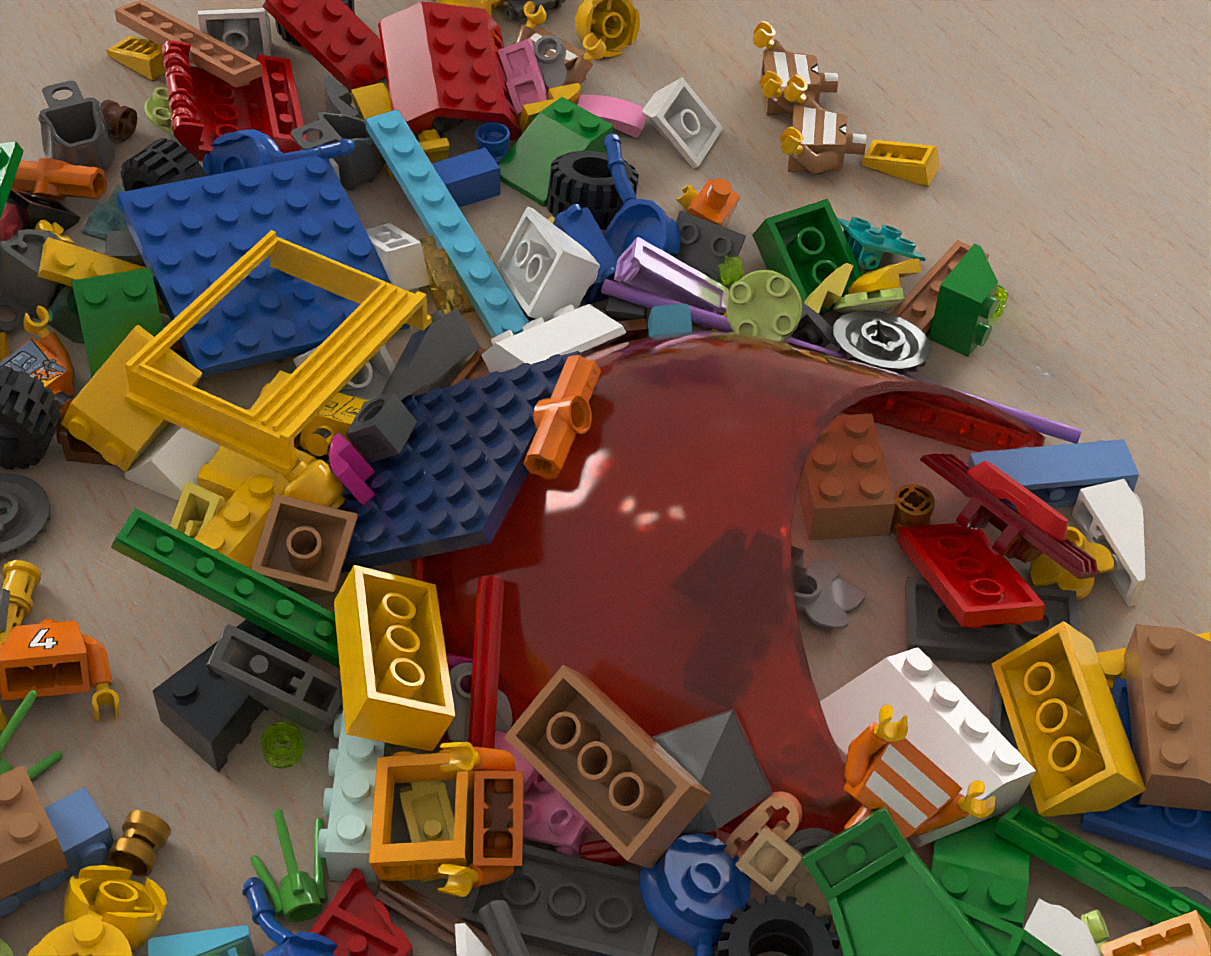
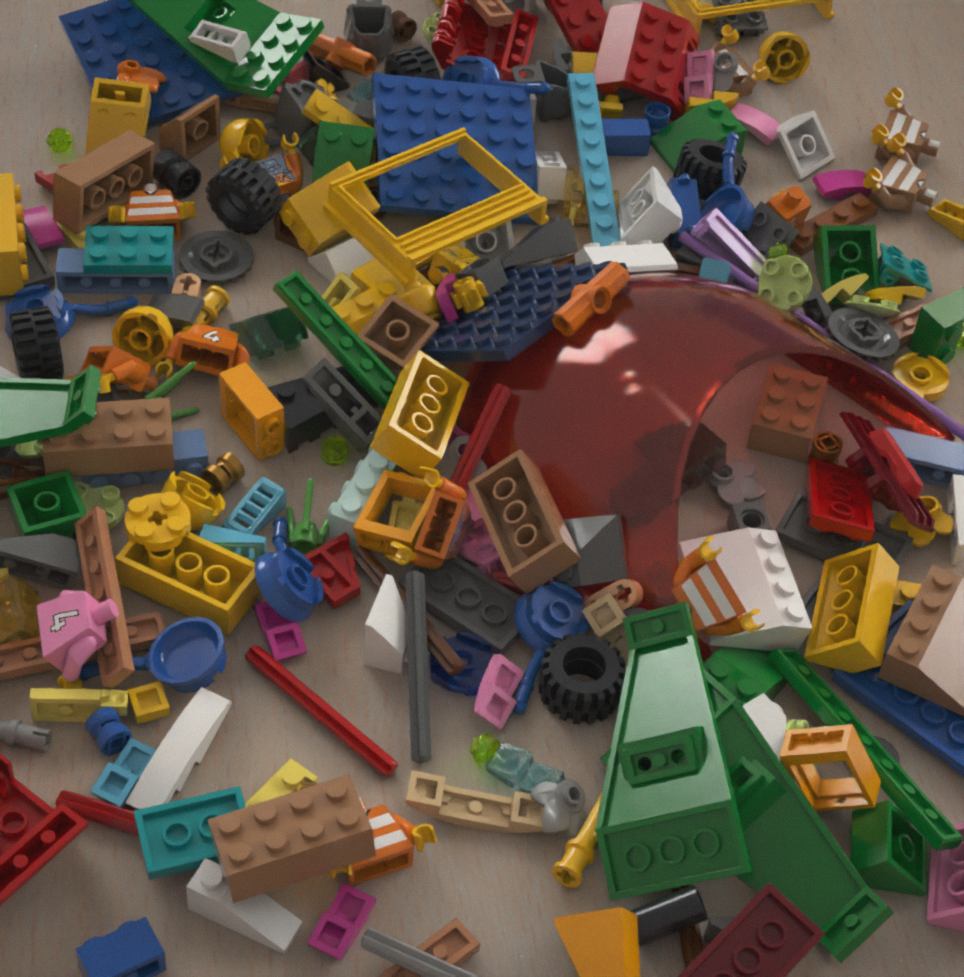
camera: 20 degrees right, 0 degrees up
(117, 601) = (270, 331): none -> clear green slope
(145, 733) = (252, 411): none -> light orange window
(214, 852) = (265, 493): none -> medium azure slope
(377, 458) = (468, 294): none -> yellow gear
(748, 157) = (840, 183): none -> dark pink slope
(768, 199) = (848, 212): none -> dark orange plate
(869, 642) = (748, 515): none -> dark grey brick
(982, 361) = (934, 371): none -> yellow plate

